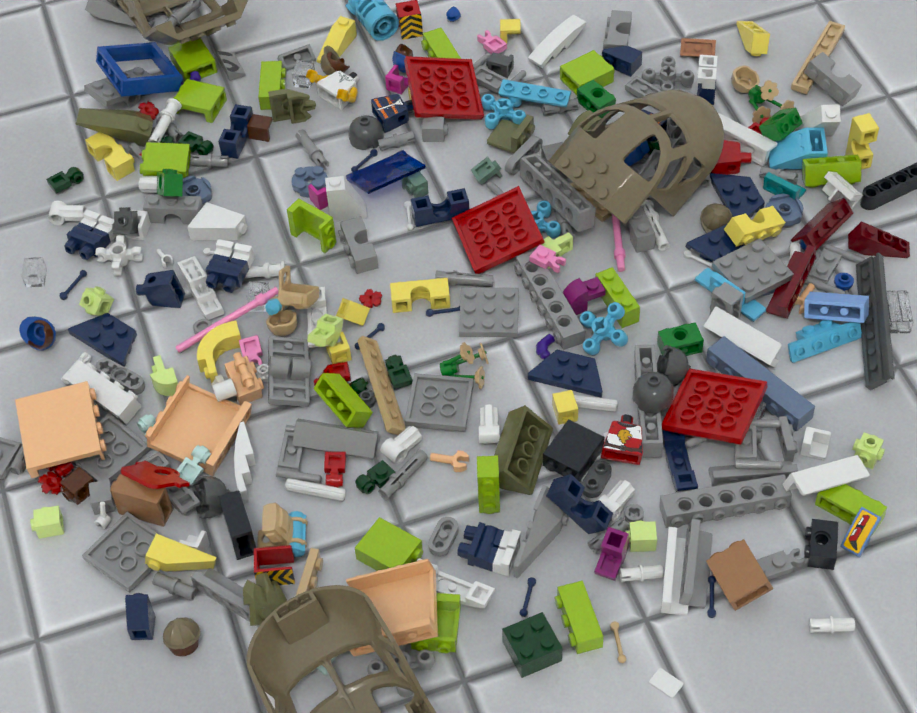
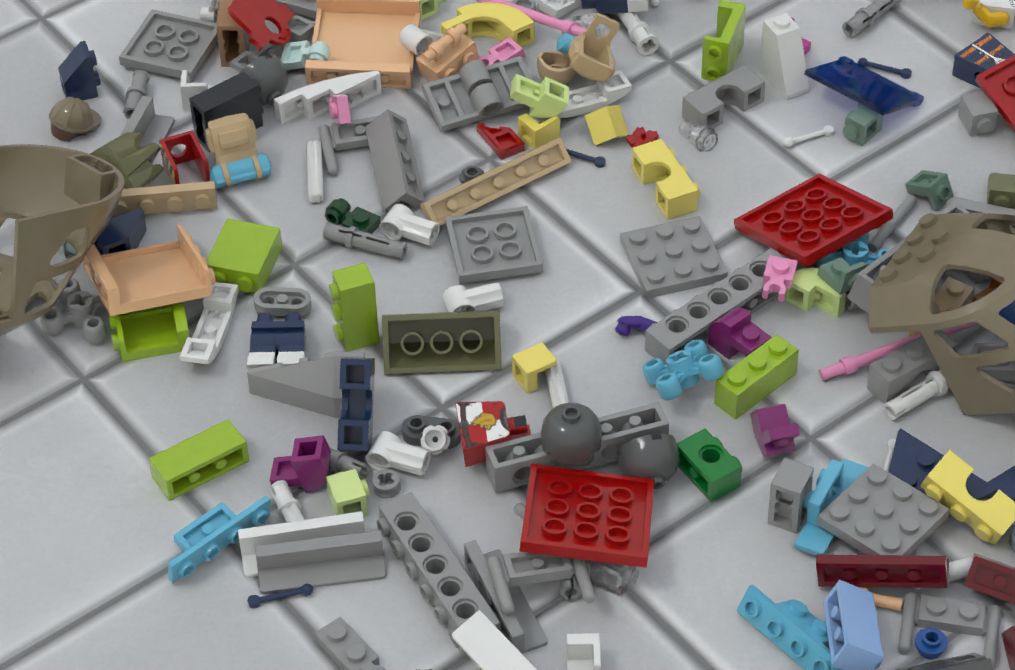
camera: 70 degrees right, 5 degrees down
(174, 556) = (166, 65): light yellow slope -> none
(273, 451) = (339, 109): none -> bright pink plate
(302, 175) = (822, 18): sand blue plate -> none
(334, 464) = (355, 175): red plate -> none
(343, 400) = (452, 152): lime brick -> none
(359, 385) = (487, 162): dark green plate -> none
(365, 132) = (932, 51): dark grey cylinder -> none
(385, 267) = (699, 135): none -> clear cone
(396, 140) = (936, 85): light grey pin -> none
(397, 372) = (527, 195): dark green plate -> none
(428, 213) = (812, 144): dark blue arch -> none
(429, 312) = (647, 202): dark blue hinge -> none
(450, 367) = (558, 236): plant -> none
(453, 460) = (408, 283): light nougat bar -> none
(466, 278) = (714, 207): light grey pin -> none
(531, 583) = (245, 406): dark blue hinge -> none
(532, 644) = (141, 421): dark green brick -> none
(559, 228) = (840, 274): none -> sand green bracket
(569, 372) = (604, 362): dark blue wing -> none
(573, 450) = (458, 381): black brick -> none
(614, 626) = (202, 504): tan hinge -> none
(617, 474) = (431, 432): none -> white plate
(652, 621) = (212, 533): none -> medium azure bracket
(664, 302) = (774, 430): none -> magenta brick
(666, 682) = (132, 576): white sticker -> none
(678, 461) = (480, 515): dark blue slope -> none
(714, 216) = (981, 454): dark tan piece -> none
(739, 574) = (311, 606): medium nougat brick -> none
(744, 336) = (737, 532): white panel -> none
(779, 397) = (668, 572): sand blue brick -> none
(786, 441) = (577, 620): light grey plate -> none

